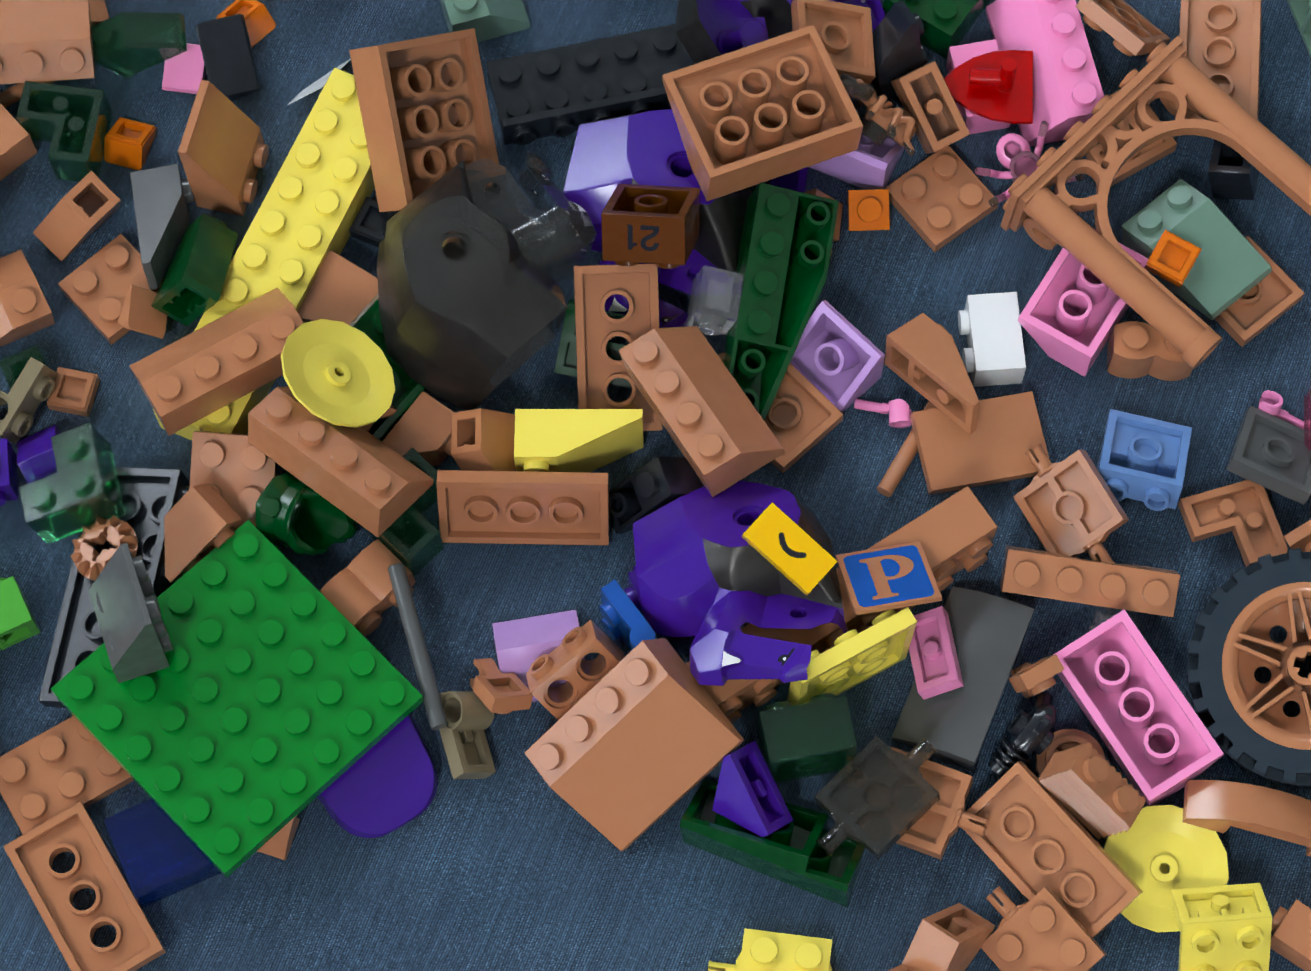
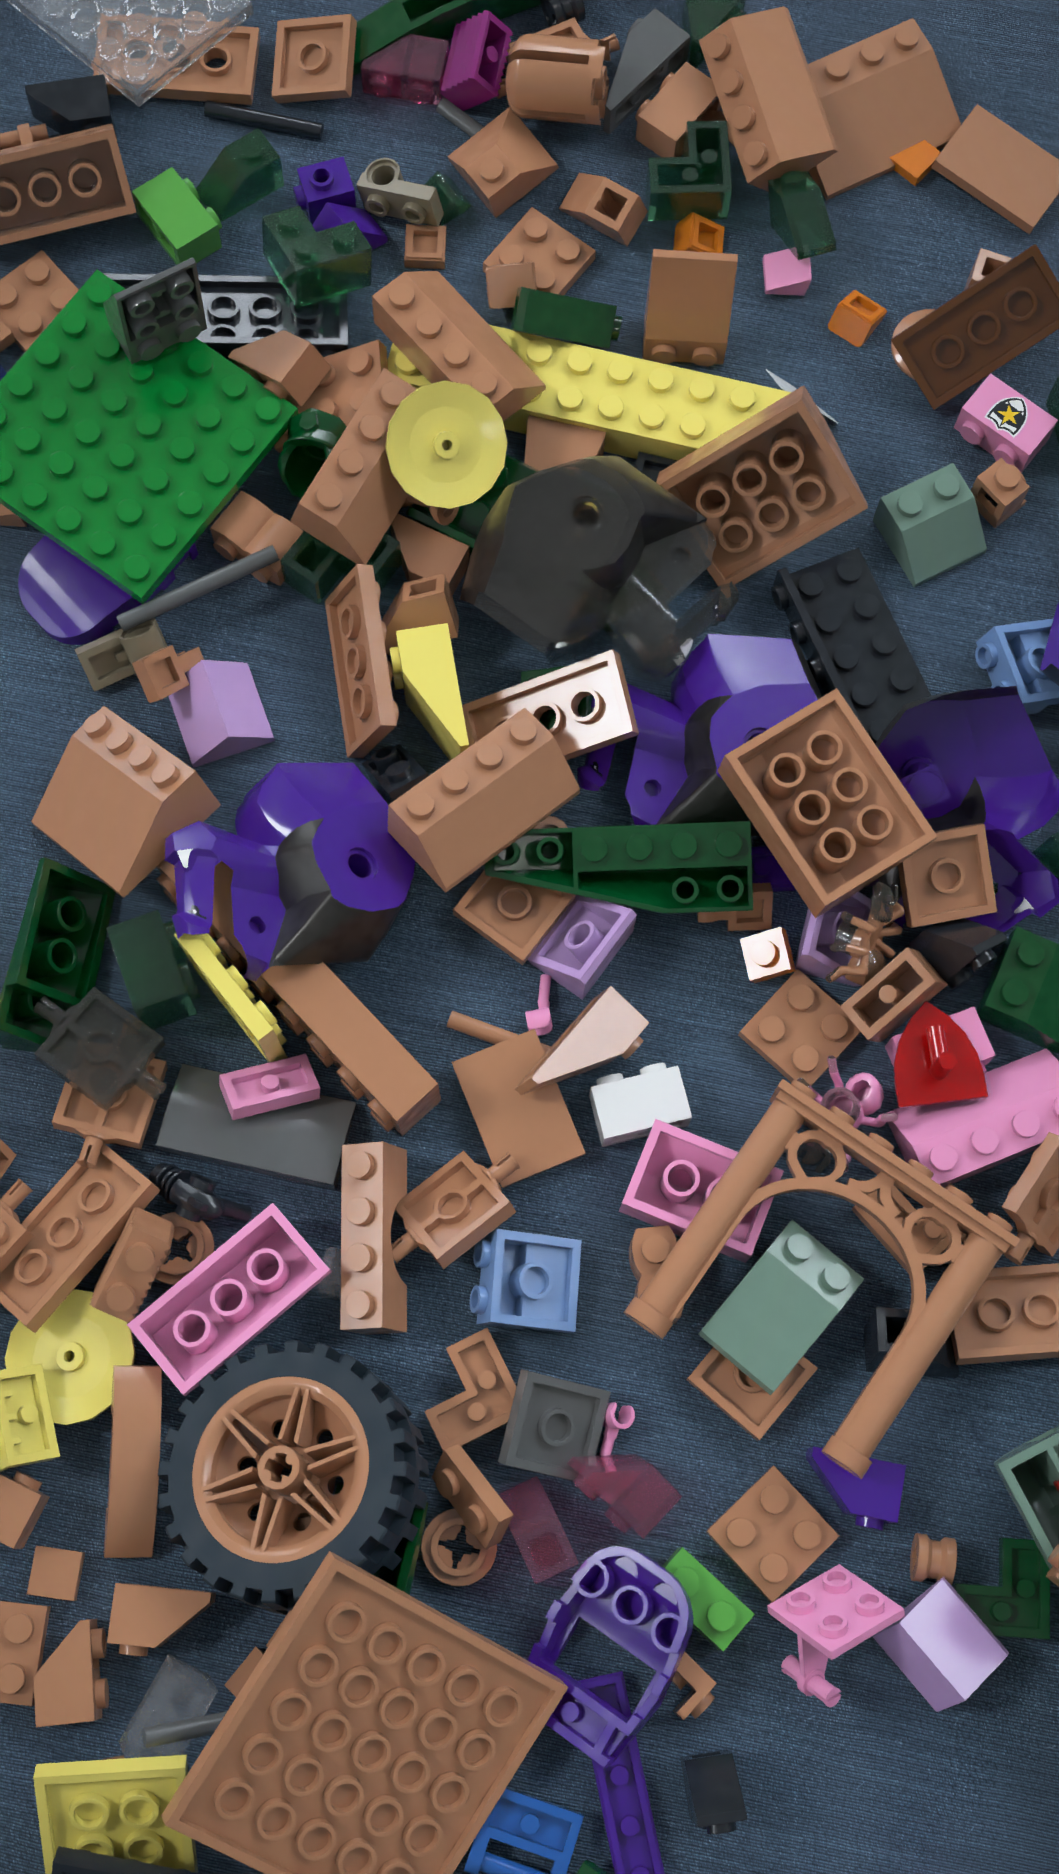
camera: 75 degrees right, 5 degrees up
(116, 532) = (267, 305): nougat gear -> none
(161, 216) = (604, 275): dark grey slope -> none
(229, 56) = (803, 302): black slope -> none
(568, 664) = (194, 736): nougat brick -> none
(622, 617) = (251, 768): blue plate -> none
(650, 225) = (672, 714): reddish brown brick -> none
(715, 300) = (614, 803): clear brick -> none
(749, 793) = (81, 922): dark purple slope -> none
(789, 548) = (315, 898): yellow tile -> none
(888, 578) = (309, 1009): piece -> none
(1035, 677) = (251, 1191): nougat plate -> none
(1172, 258) = (754, 1275): orange tile -> none

